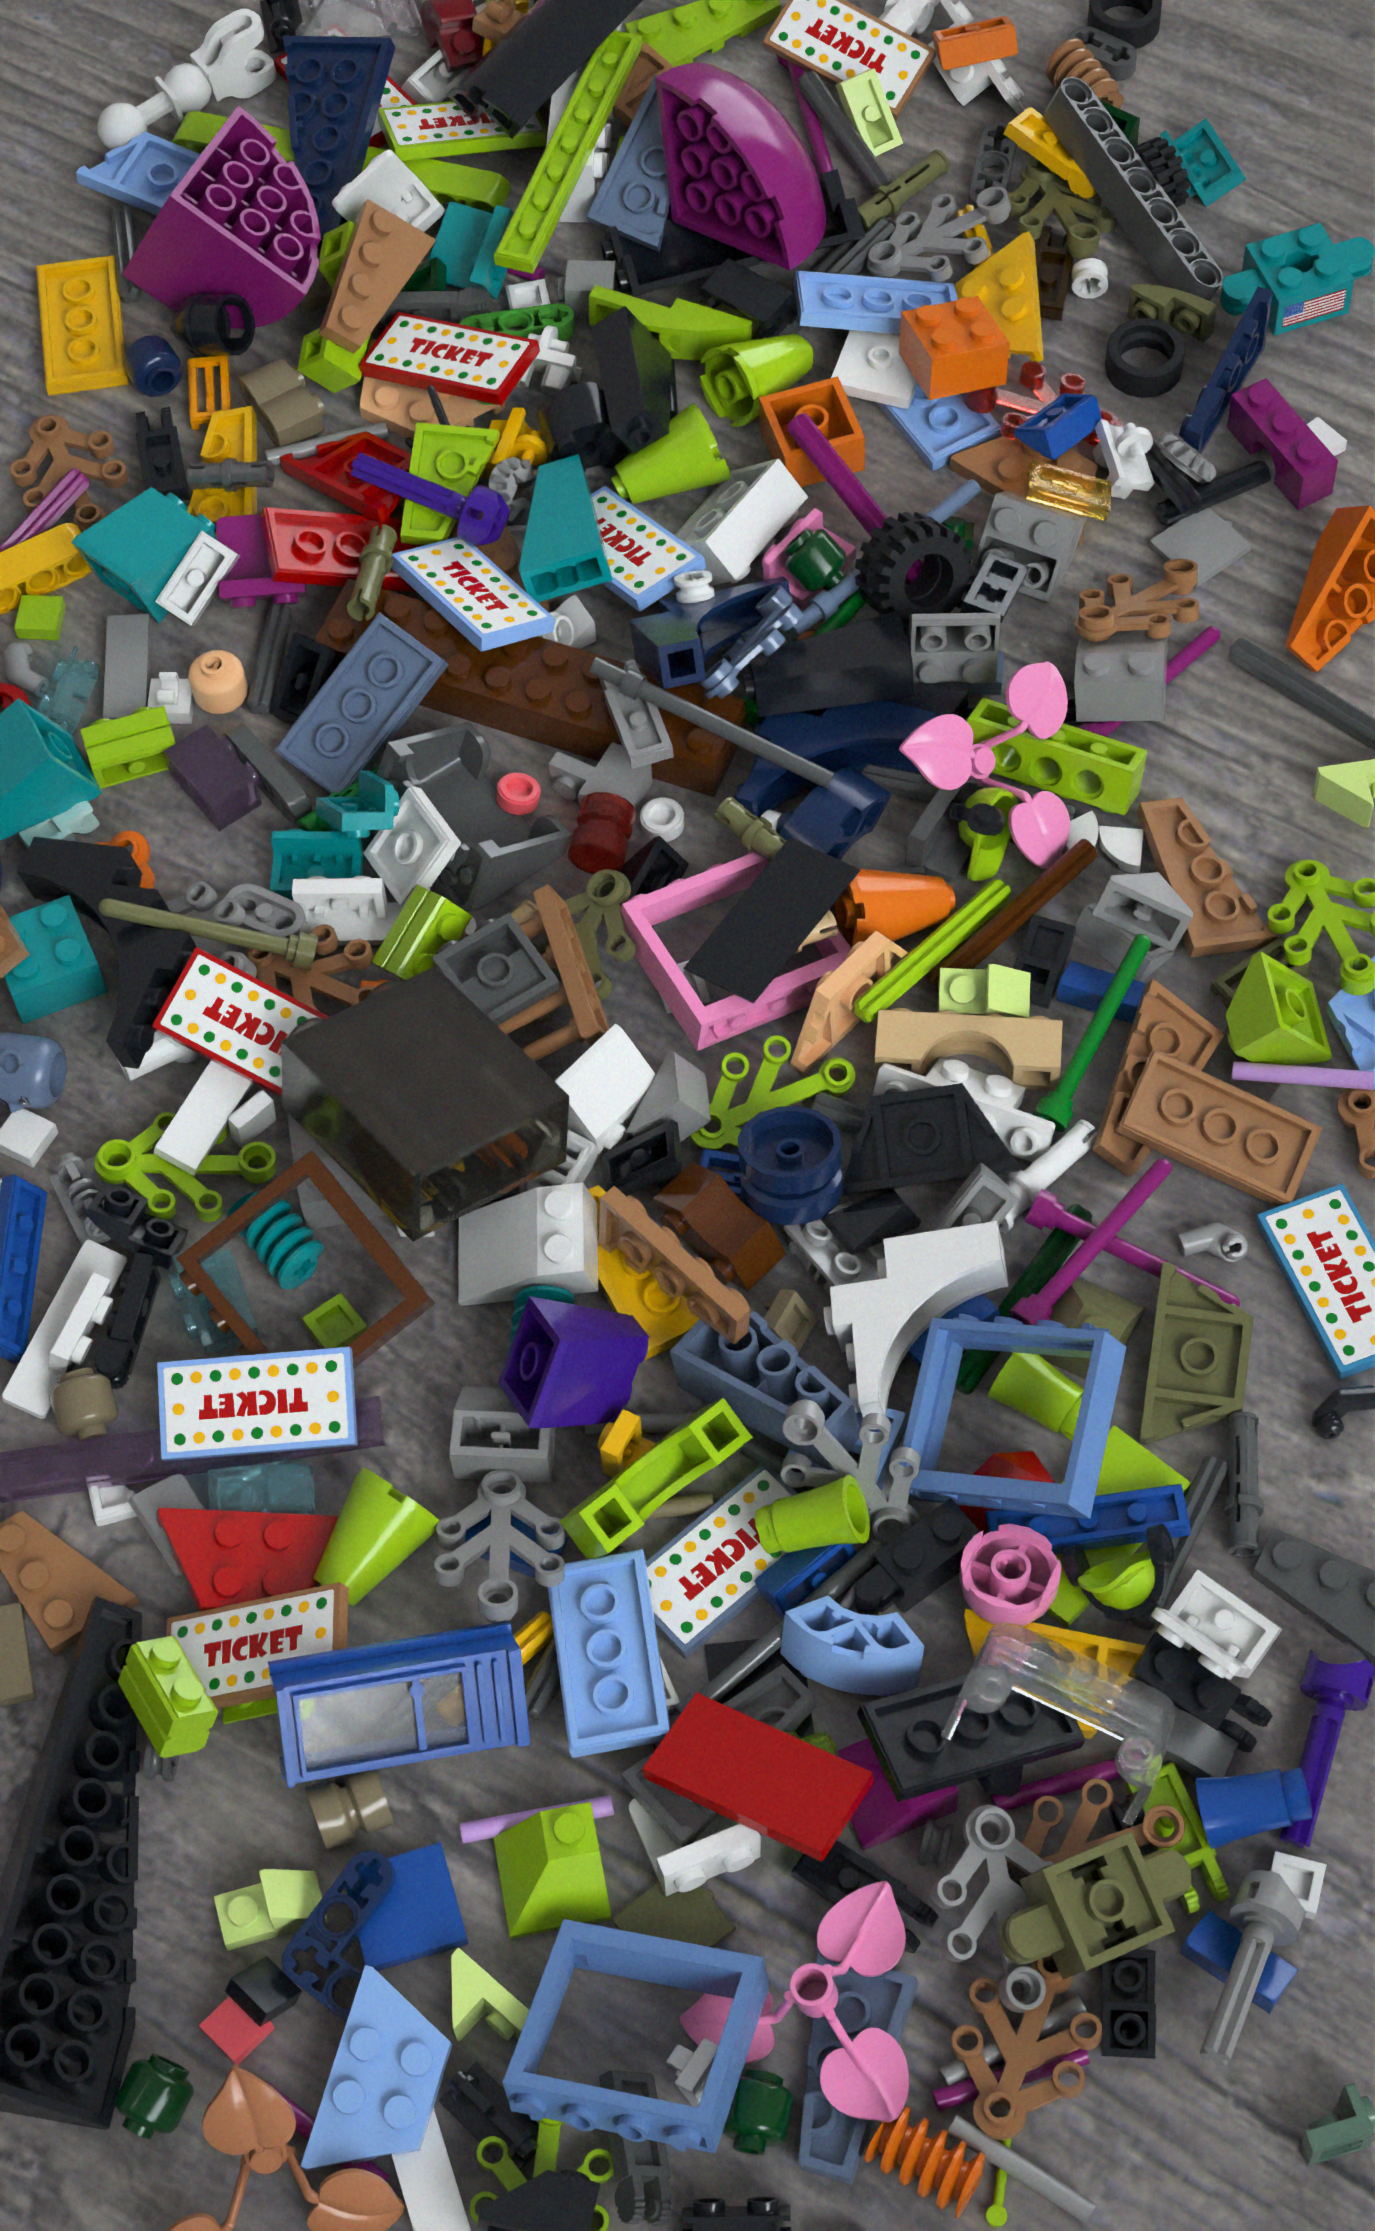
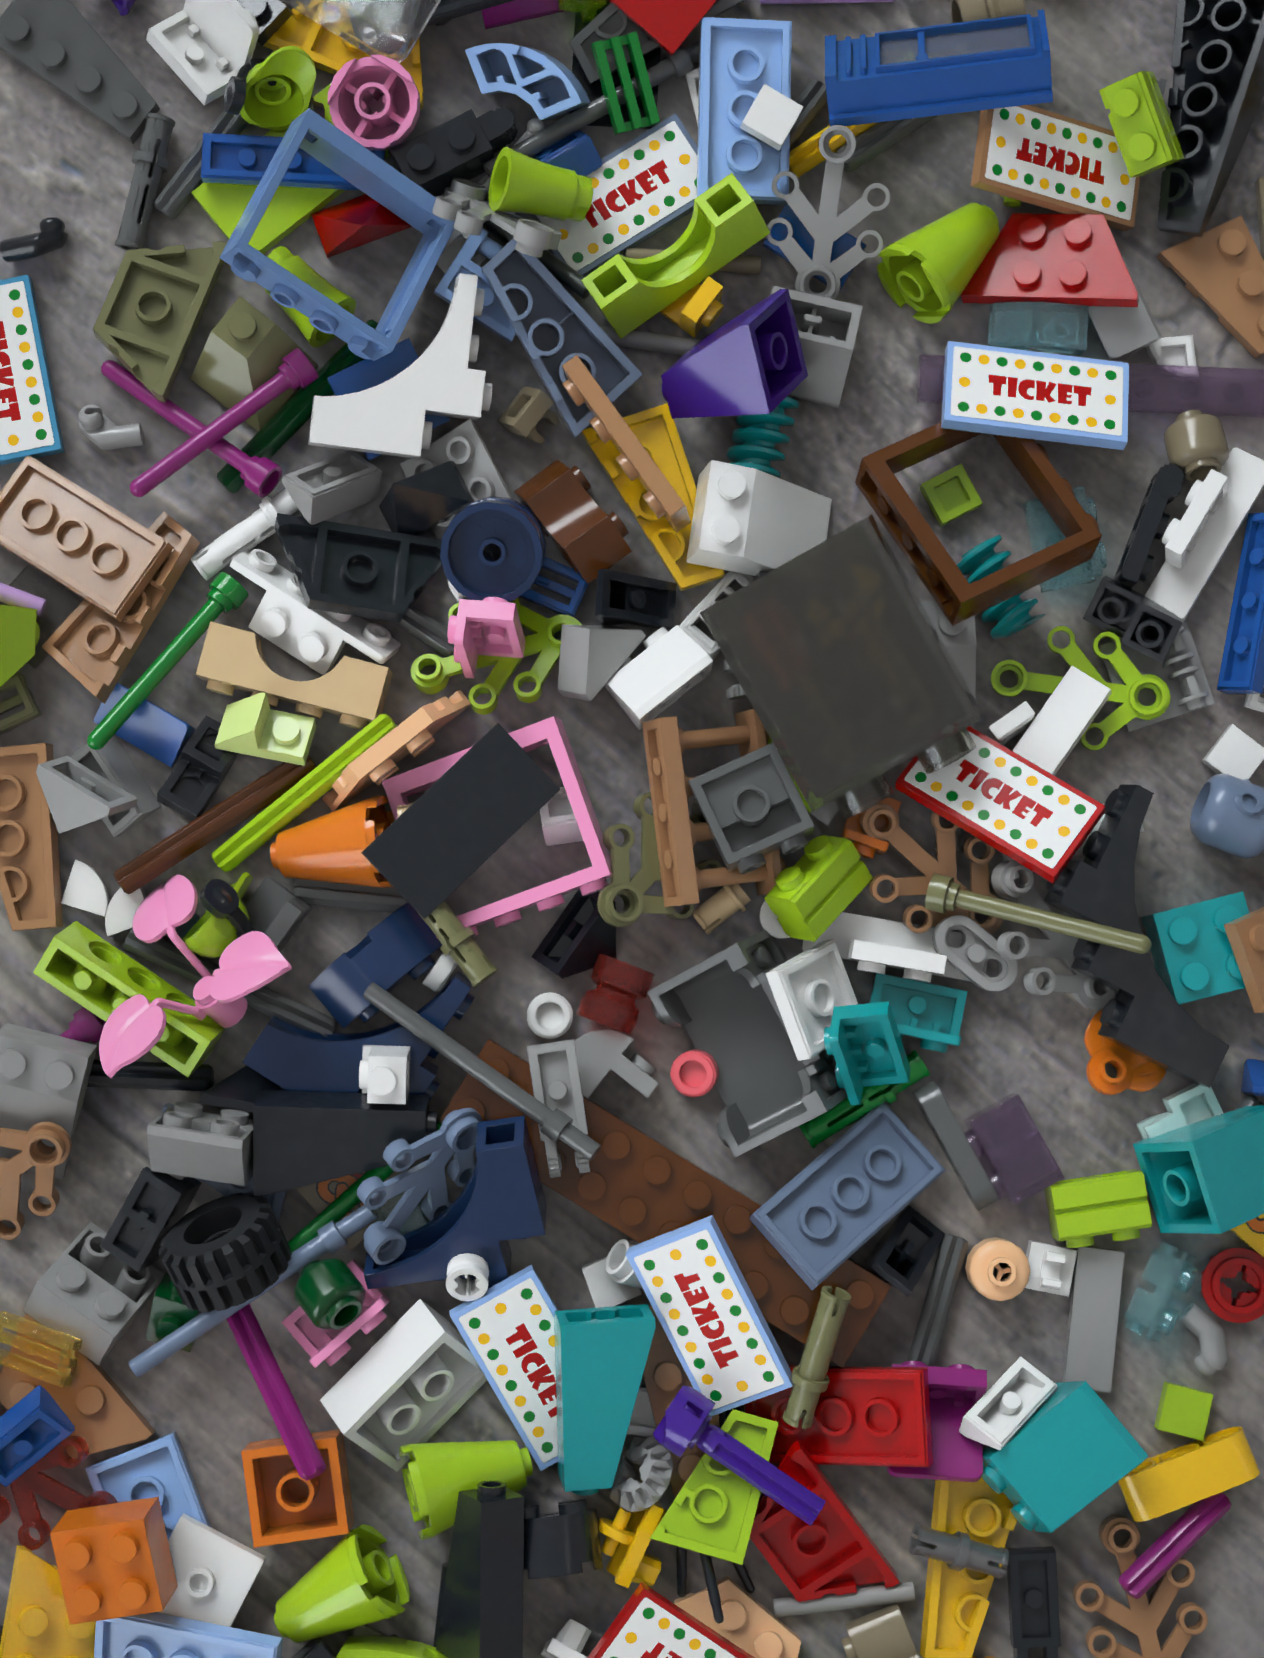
camera: 175 degrees left, 25 degrees up
(575, 1637) = (771, 117): none -> white tile
(727, 1630) = (636, 56): none -> green tile
(783, 1088) = (487, 629): none -> bright pink bracket
(799, 713) = (385, 1074): none -> white brick

